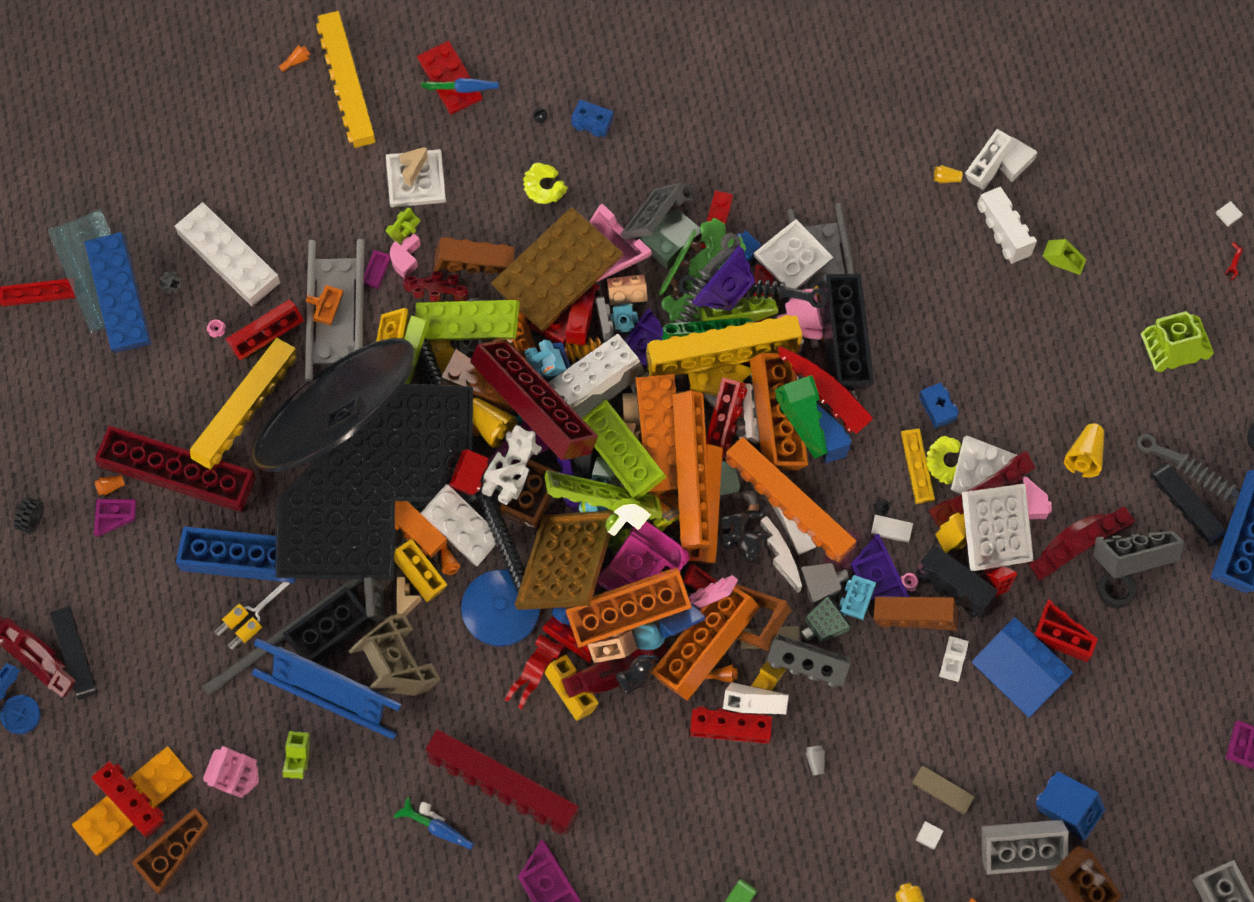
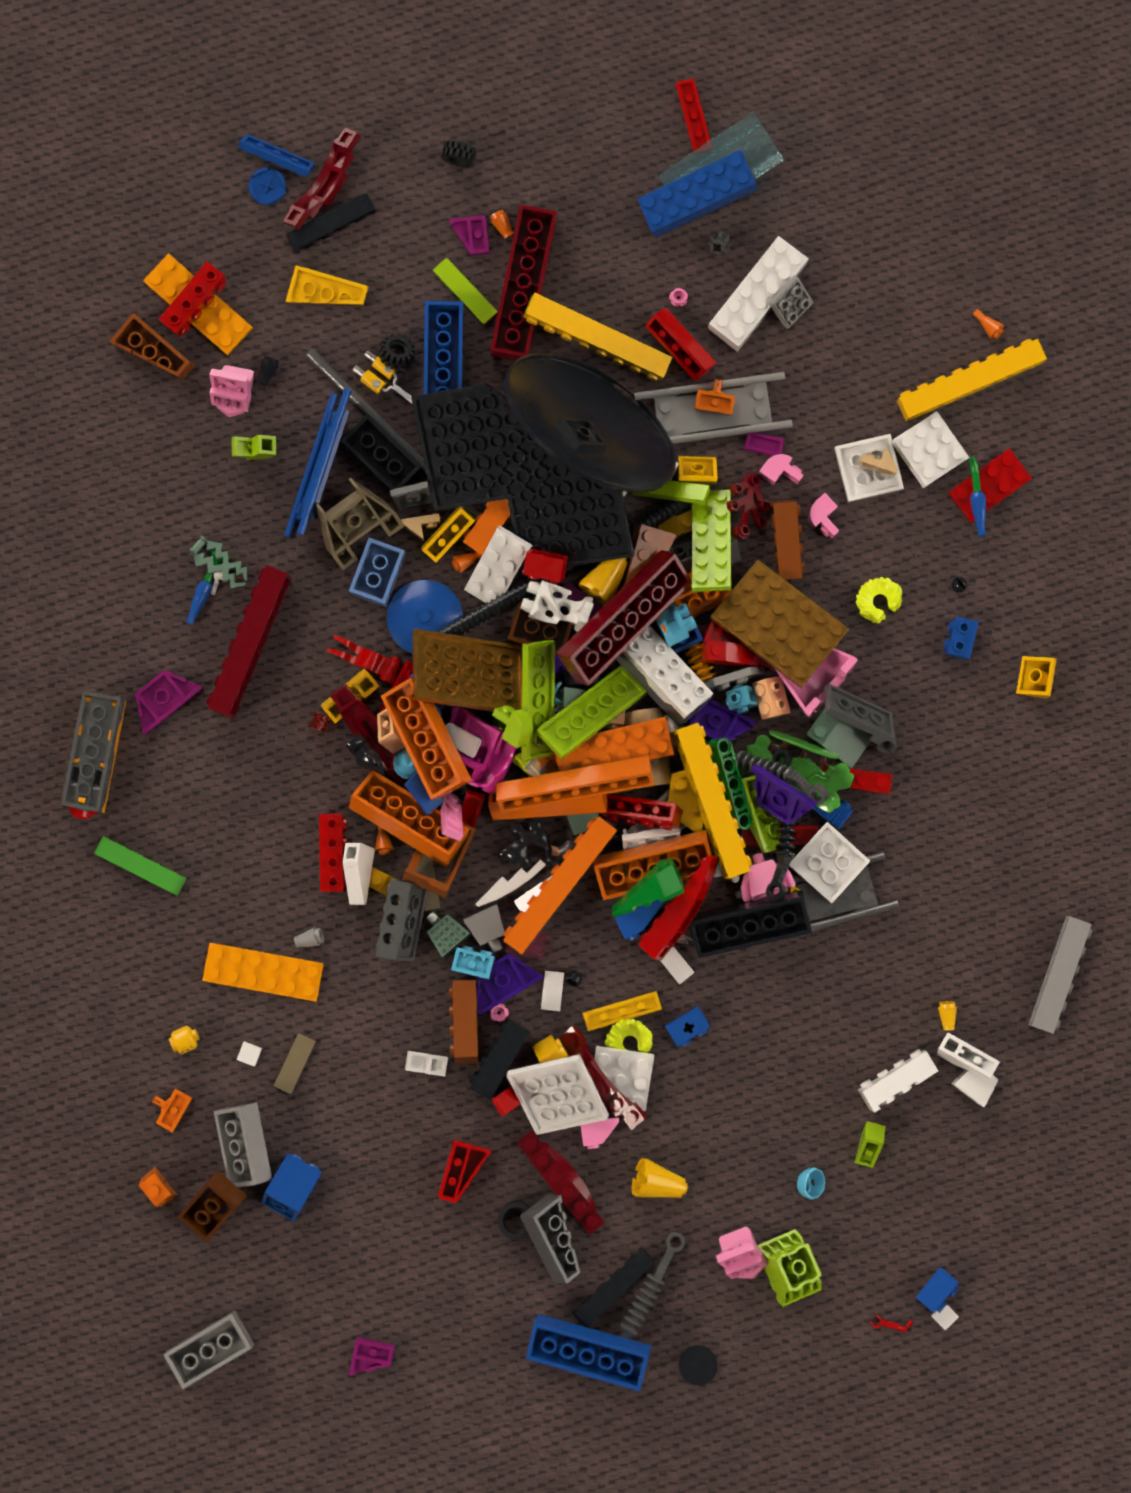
camera: 80 degrees right, 15 degrees up
(139, 673) = (321, 288): none -> yellow wing
(170, 529) = (465, 291): none -> lime tile
(215, 735) = (267, 369): none -> black cone
(216, 594) = (393, 359): none -> black tyre
(242, 224) = (790, 302): none -> light grey tile
(403, 226) = (811, 463): lime hips -> none
(407, 122) = (930, 449): none -> white plate
(407, 826) = (225, 567): none -> sand green piece
(447, 645) = (377, 572): none -> medium blue brick
(453, 226) = (818, 515): none -> bright pink brick
(594, 723) = (319, 722): none -> clear red wheel
(635, 571) = (464, 740): none -> white tile
(637, 58) = (1036, 676): none -> yellow slope
(846, 812) = (263, 972): none -> light orange plate
(880, 409) = (677, 966): none -> white tile
(918, 75) = (1060, 975): none -> light grey brick
(1022, 667) = (423, 1130): blue slope -> none
(1101, 318) = (804, 1183): none -> medium azure piece
(1162, 382) = (741, 1255): none -> bright pink piece
(1206, 214) = (937, 1291): none -> blue brick

